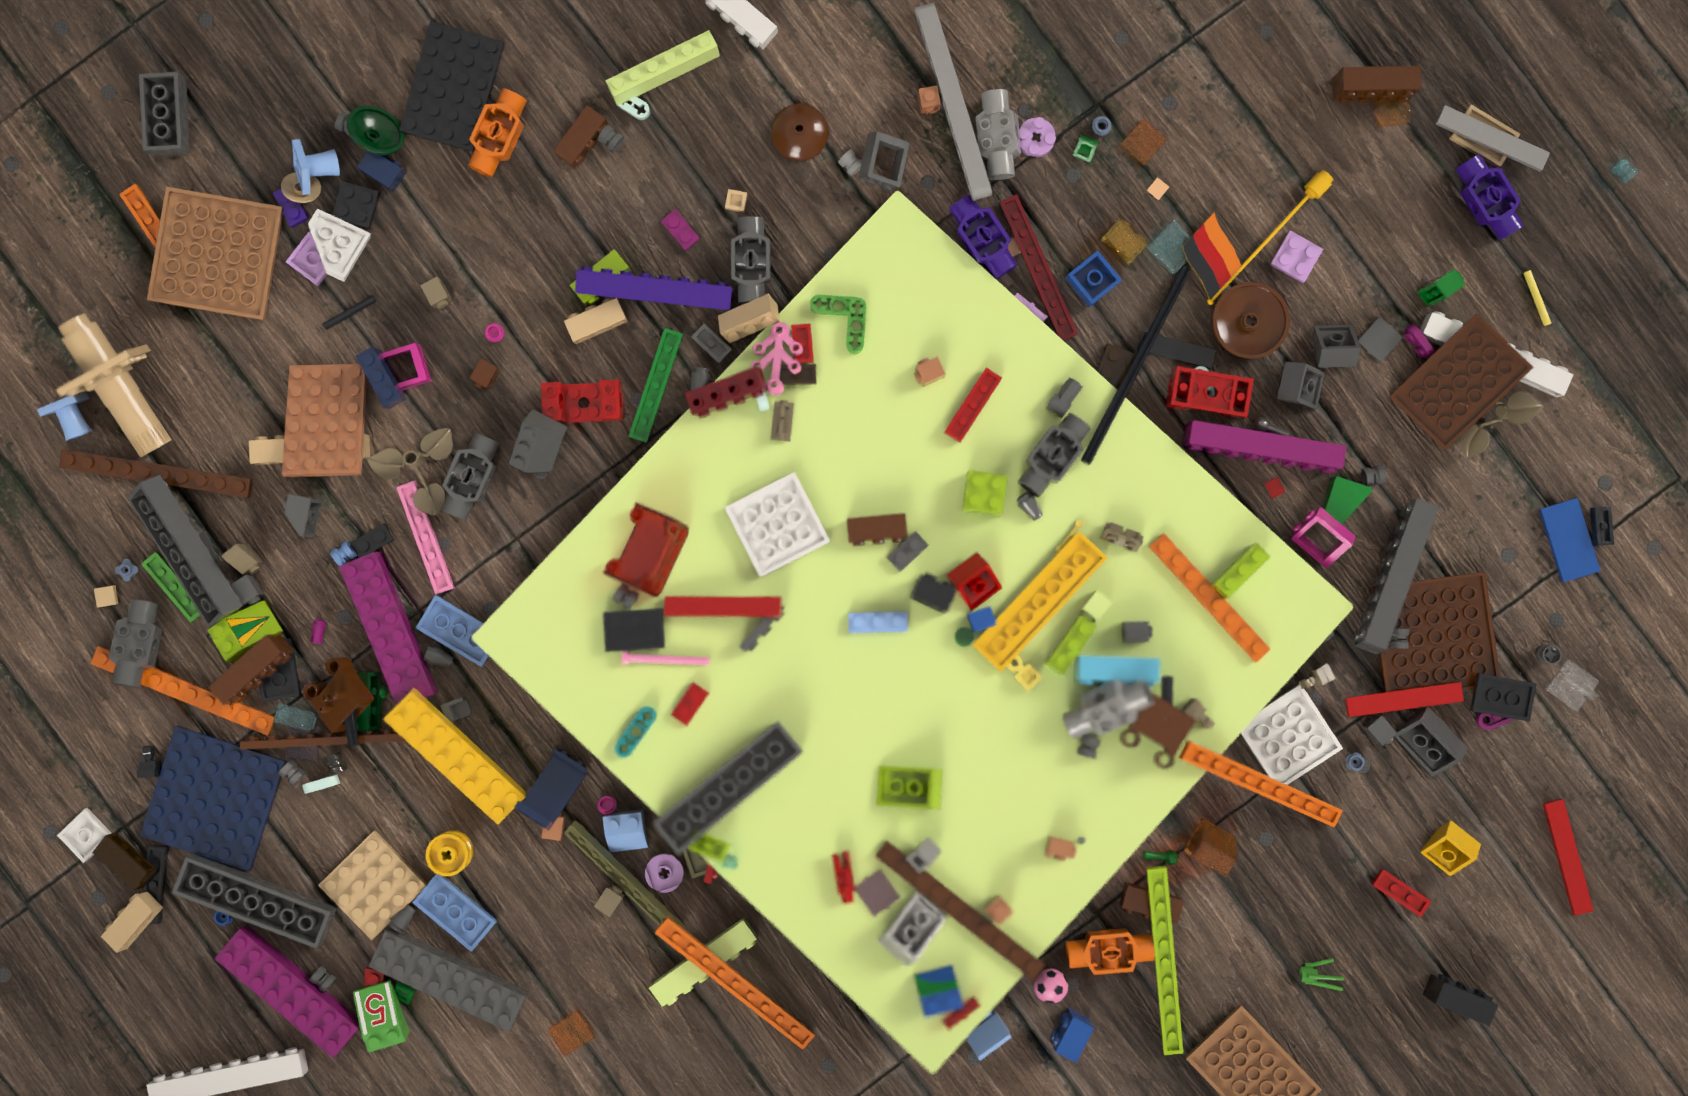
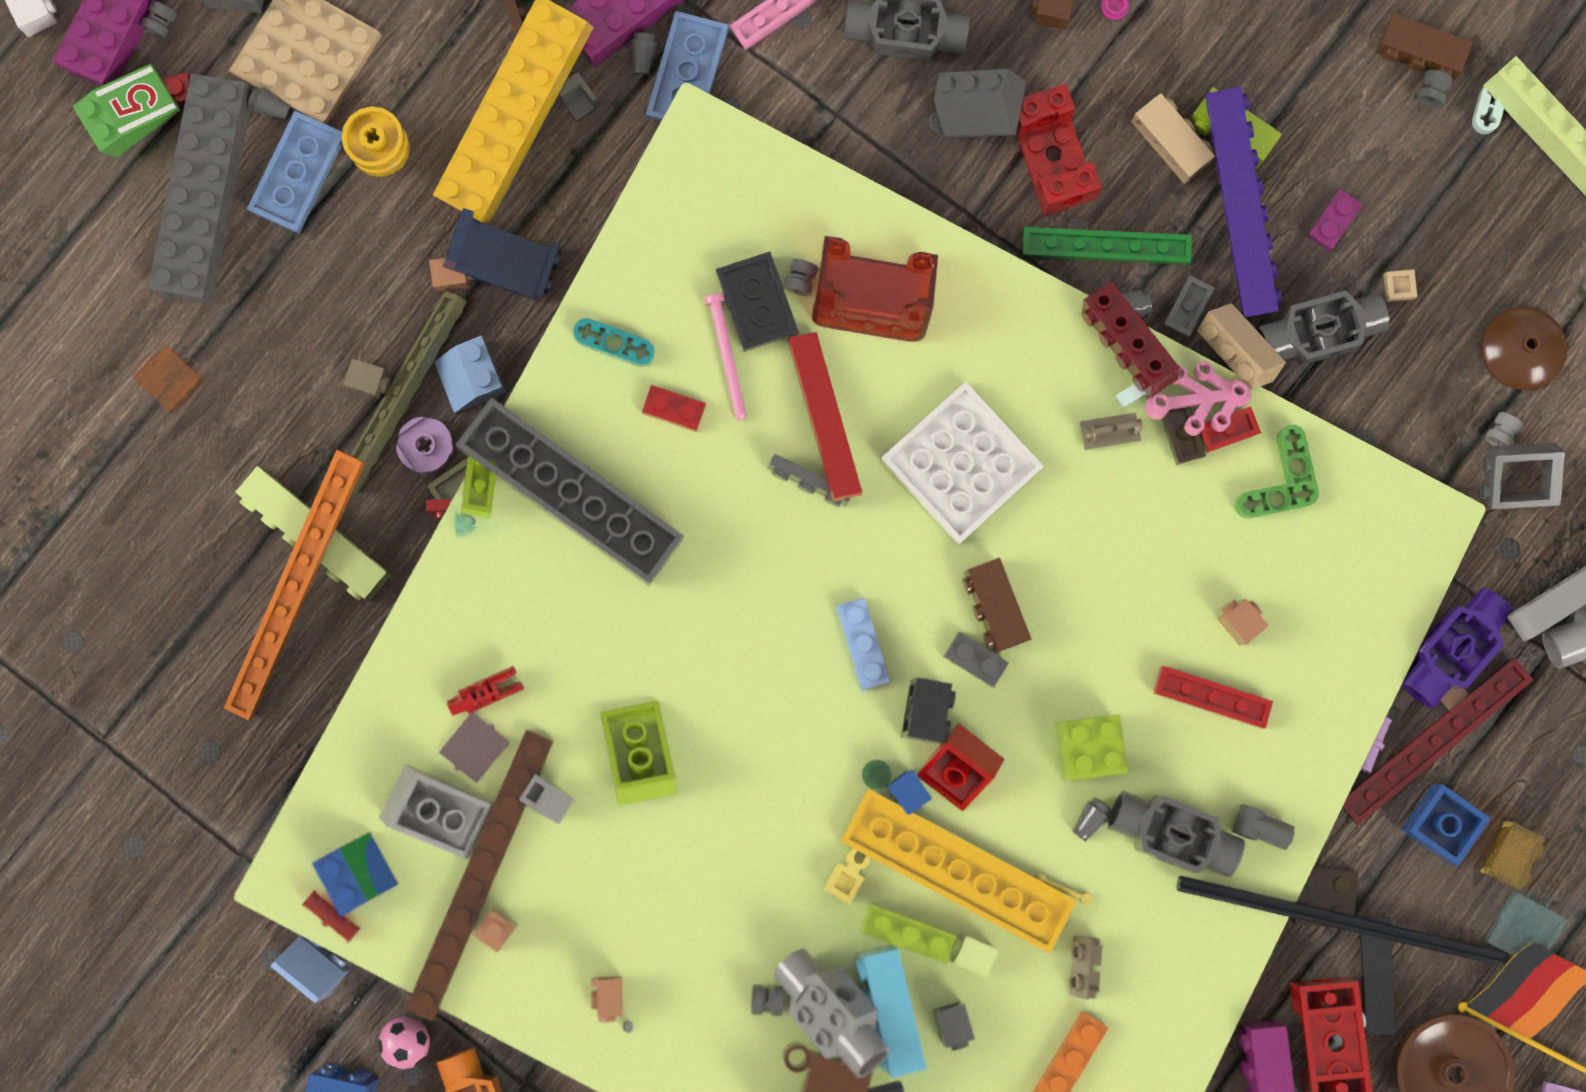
camera: 80 degrees right, 5 degrees down
(404, 992) = (167, 135): green slope -> none
(607, 805) = (499, 339): dark pink plate -> none

